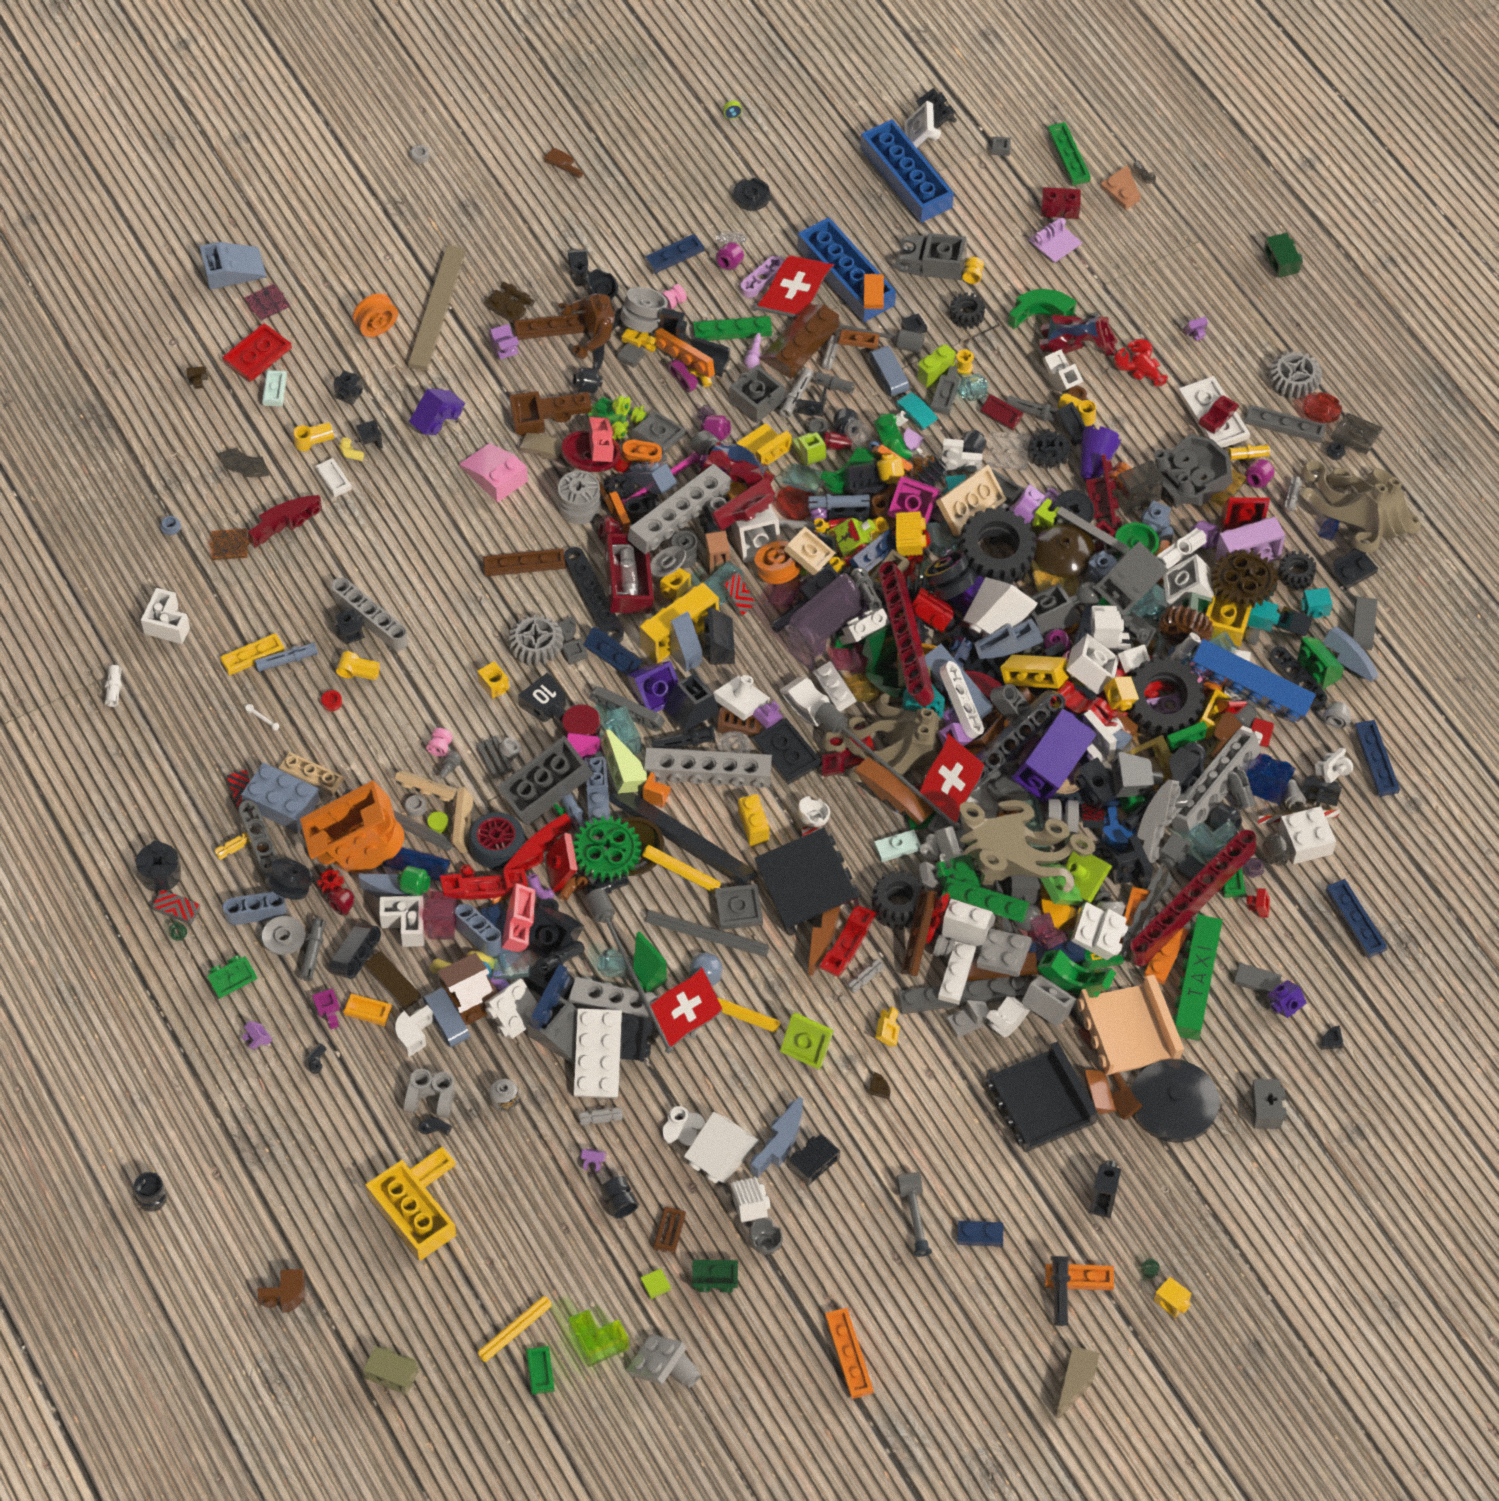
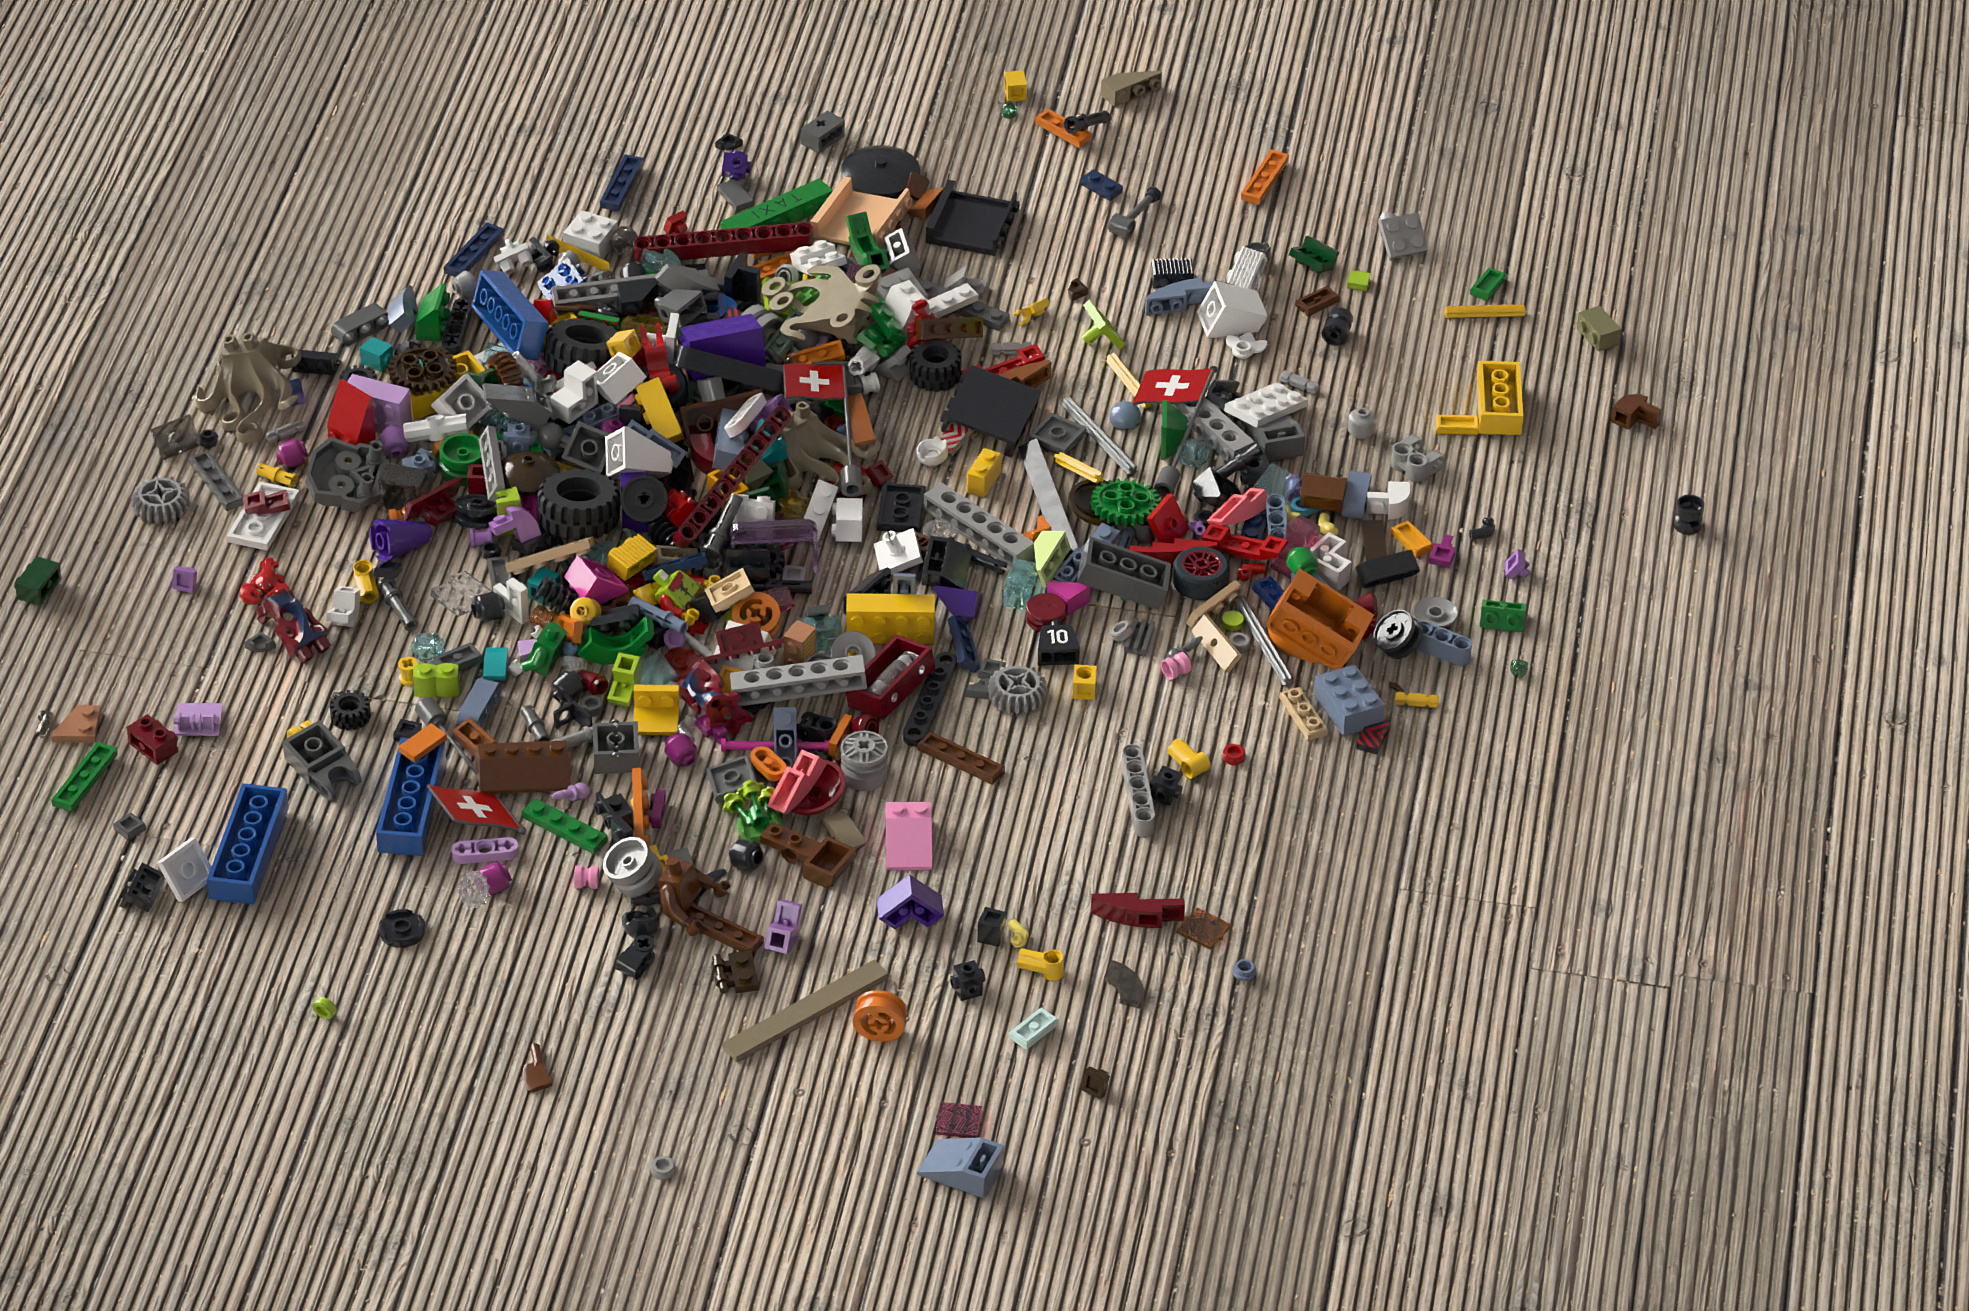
camera: 140 degrees left, 15 degrees down
(113, 685) = (1408, 879): white pin -> none
(158, 866) = (1497, 711): black brick -> none
(163, 619) = (1323, 886): white brick -> none
(176, 907) = (1504, 686): tile -> none
(245, 656) = (1268, 828): yellow tile -> none
(250, 709) = (1309, 791): white hinge -> none
(256, 839) = (1395, 682): dark grey beam -> none
(257, 352) = (1018, 1070): red plate -> none
(285, 657) = (1240, 803): sand blue pin -> none
(314, 941) = (1427, 590): dark grey pin -> none
(333, 477) = (1055, 924): white tile -> none
(434, 1124) = (1431, 445): black arm -> none
(512, 1008) = (1310, 461): white plate -> none
(550, 997) = (1275, 430): dark blue plate -> none
(594, 1342) = (1435, 263): clear neon green brick -> none
(595, 1156) = (1330, 360): medium lavender tile -> none
(638, 713) = (997, 601): dark grey beam -> none
(674, 253) = (538, 915): dark blue plate -> none
(704, 411) = (674, 769): plate -> none
(704, 442) = (707, 741): dark grey head -> none
(768, 714) = (891, 526): medium lavender tile -> none
(897, 845) = (891, 405): light aqua plate -> none
(960, 648) = (693, 476): dark blue hinge -> none
(1002, 412) = (428, 618): dark red tile -> none
(1008, 1016) = (940, 267): white brick -> none
(1041, 302) = (286, 677): green arch -> none
(1049, 449) = (429, 569): black gear -> none
(1107, 1183) = (992, 147): black torso -> none
(1145, 910) = (764, 260): sword -> none
(1322, 408) = (175, 465): clear red tile -> none

